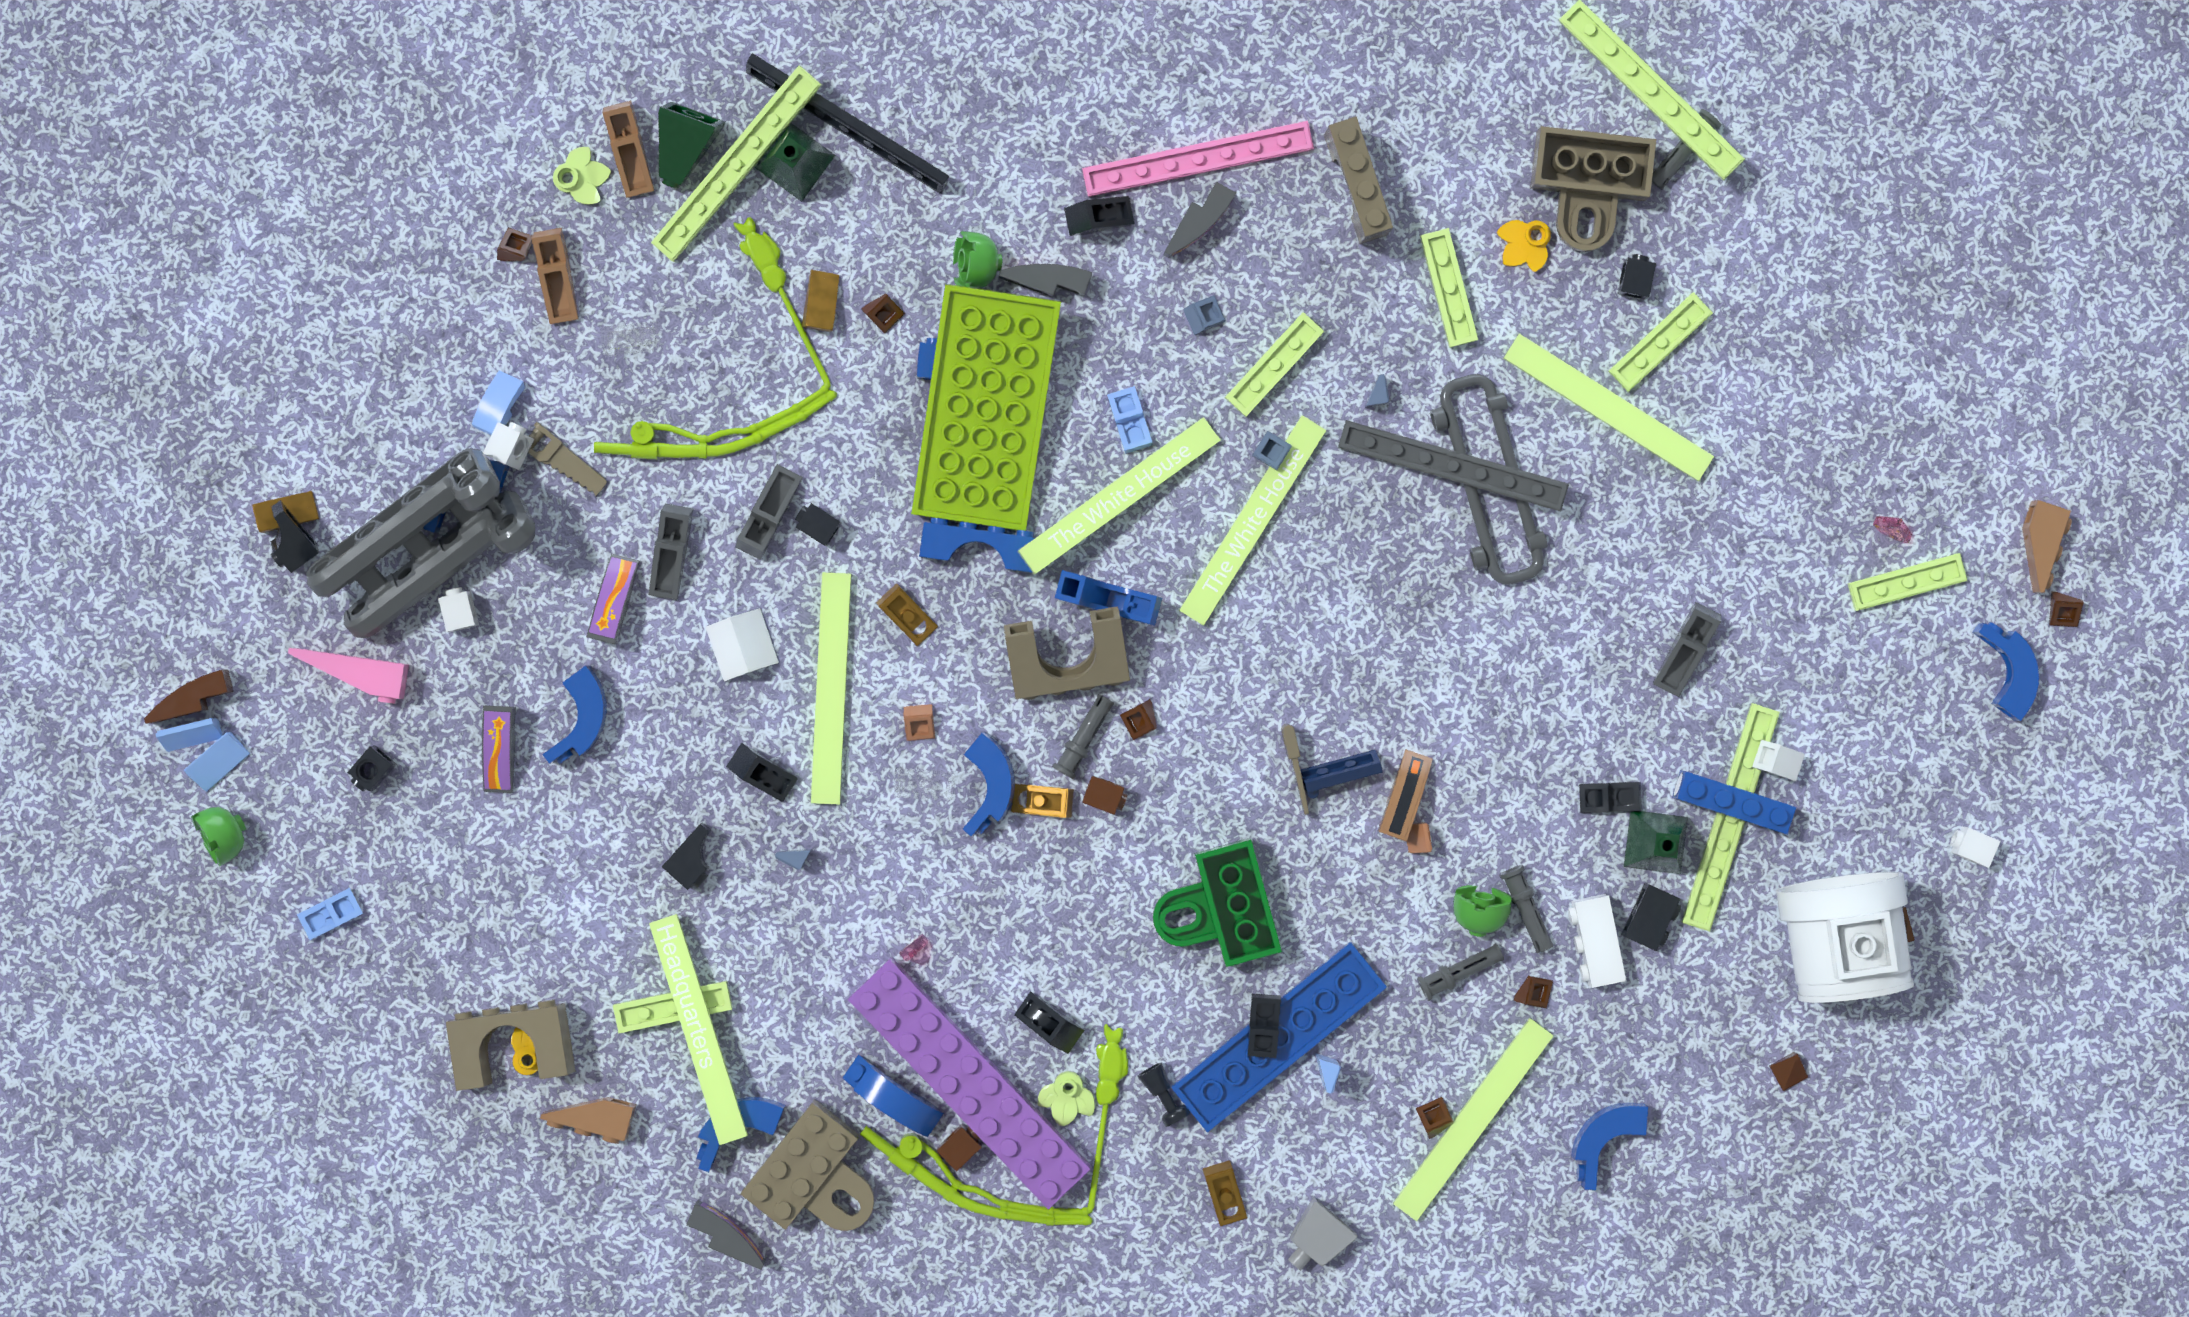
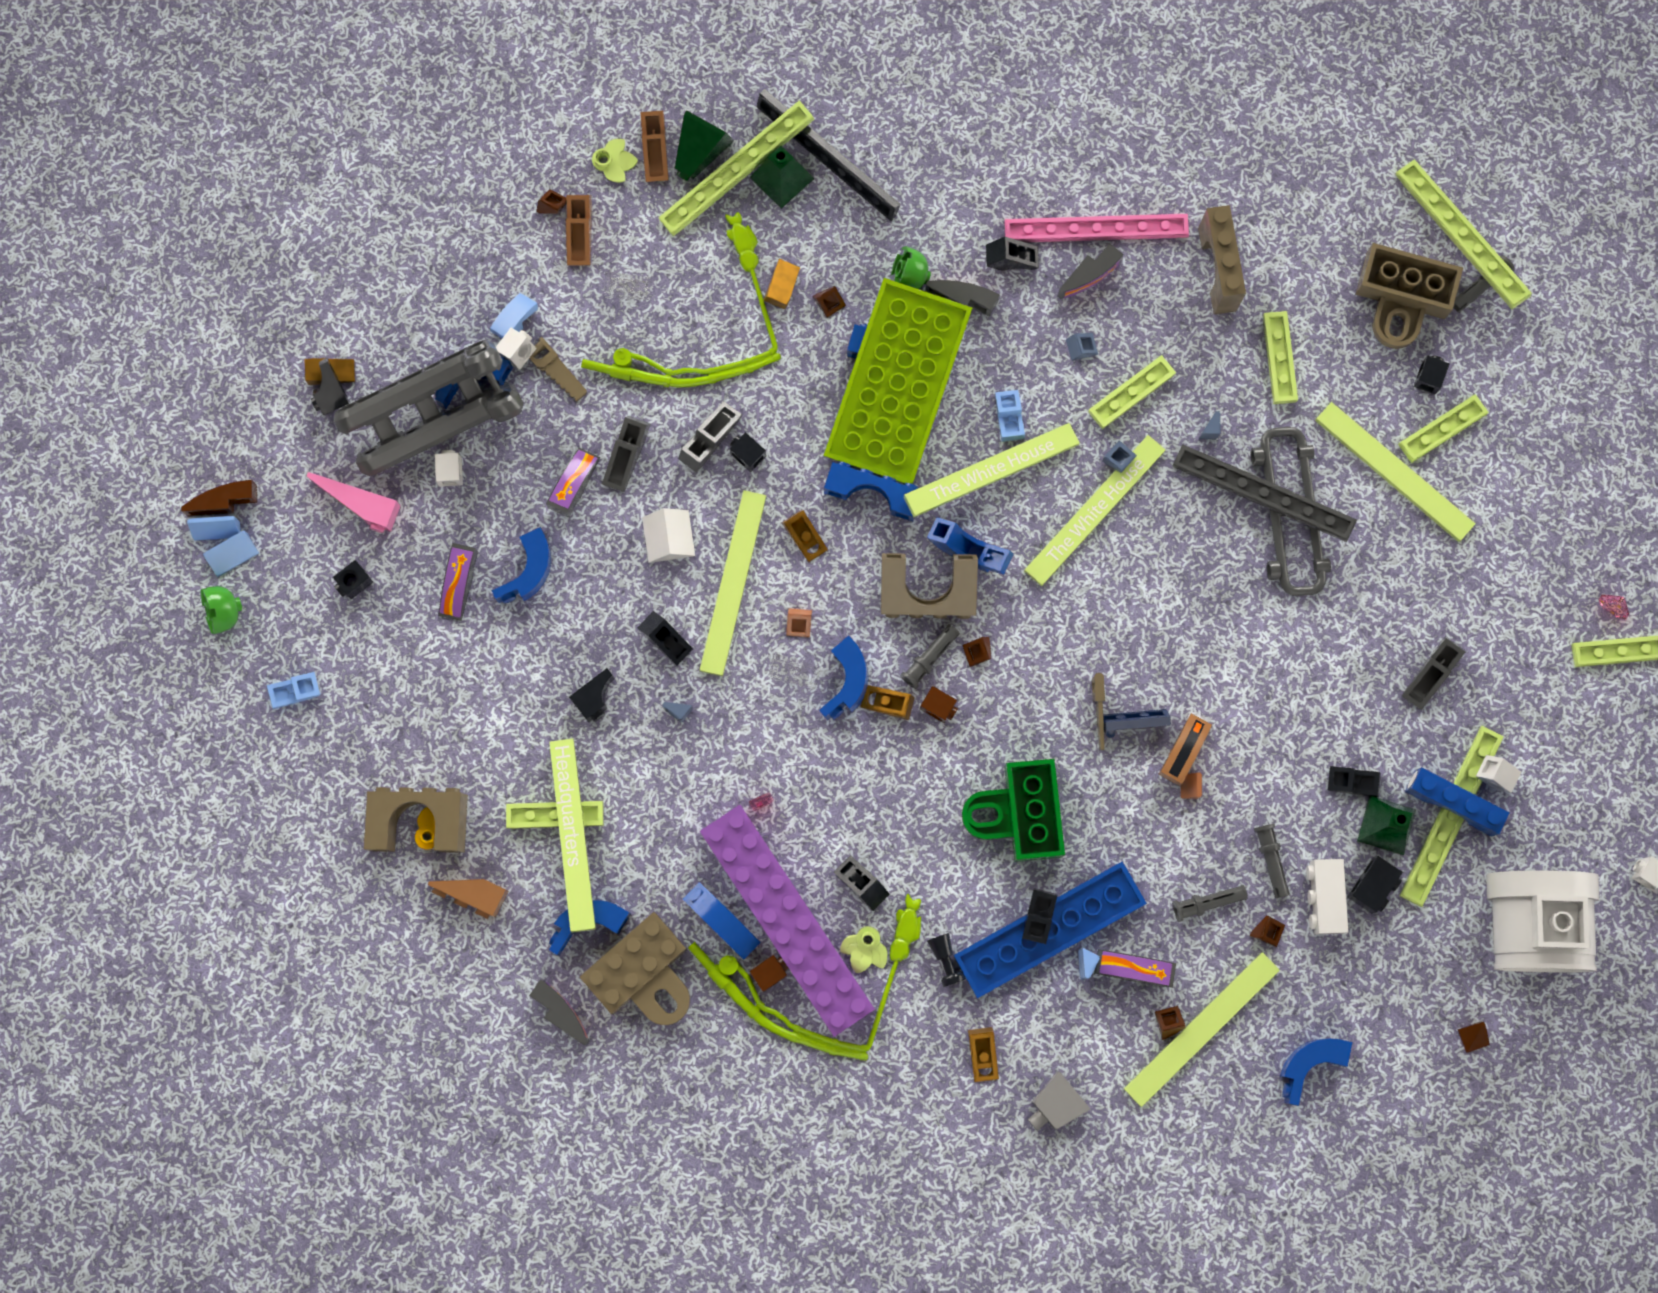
camera: 10 degrees right, 10 degrees down
(1385, 1065) = (1135, 968): none -> slope
(1481, 910) = (1234, 853): bright green cylinder -> none
(1521, 246) = (1342, 337): yellow plate -> none

